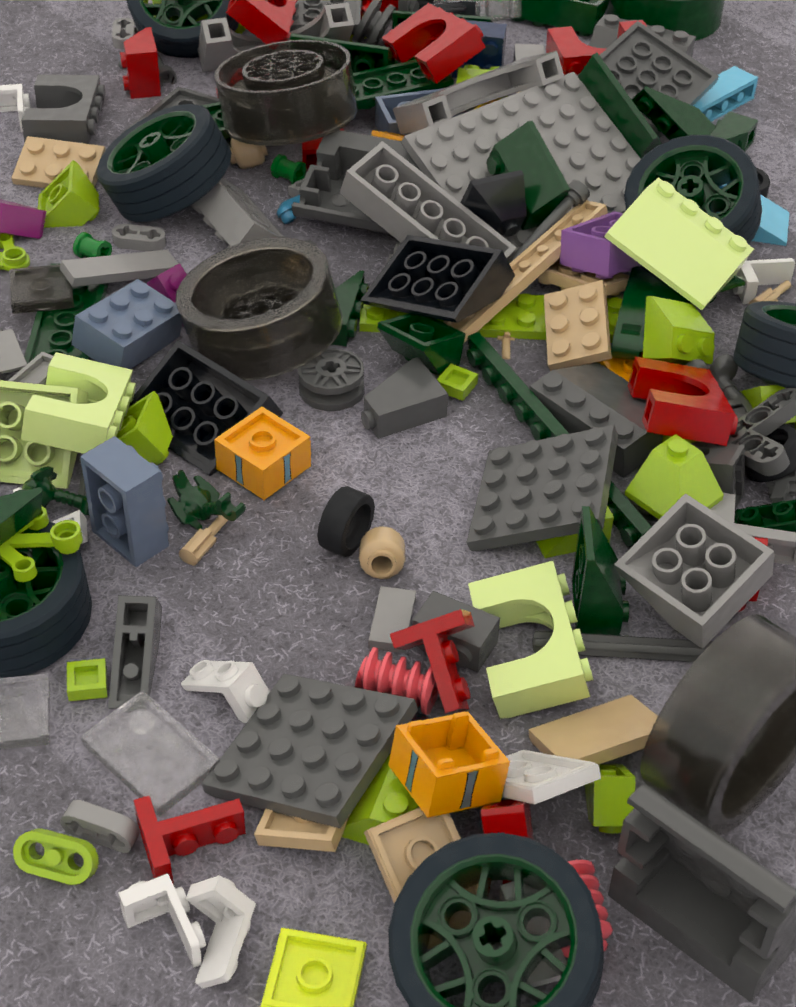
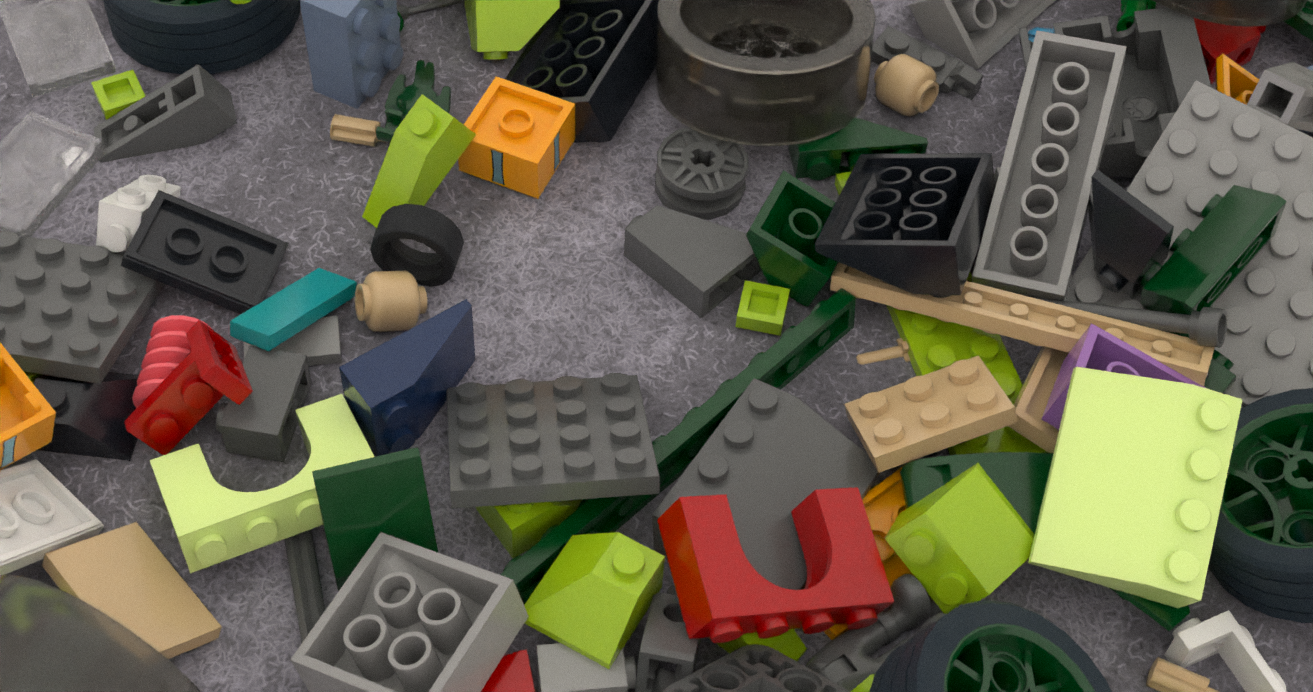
camera: 70 degrees right, 10 degrees up
(278, 501) = (417, 158): none -> lime slope
(296, 644) = (204, 254): none -> black tile
(377, 598) = (292, 309): none -> teal tile
(471, 538) = (406, 380): none -> dark blue slope

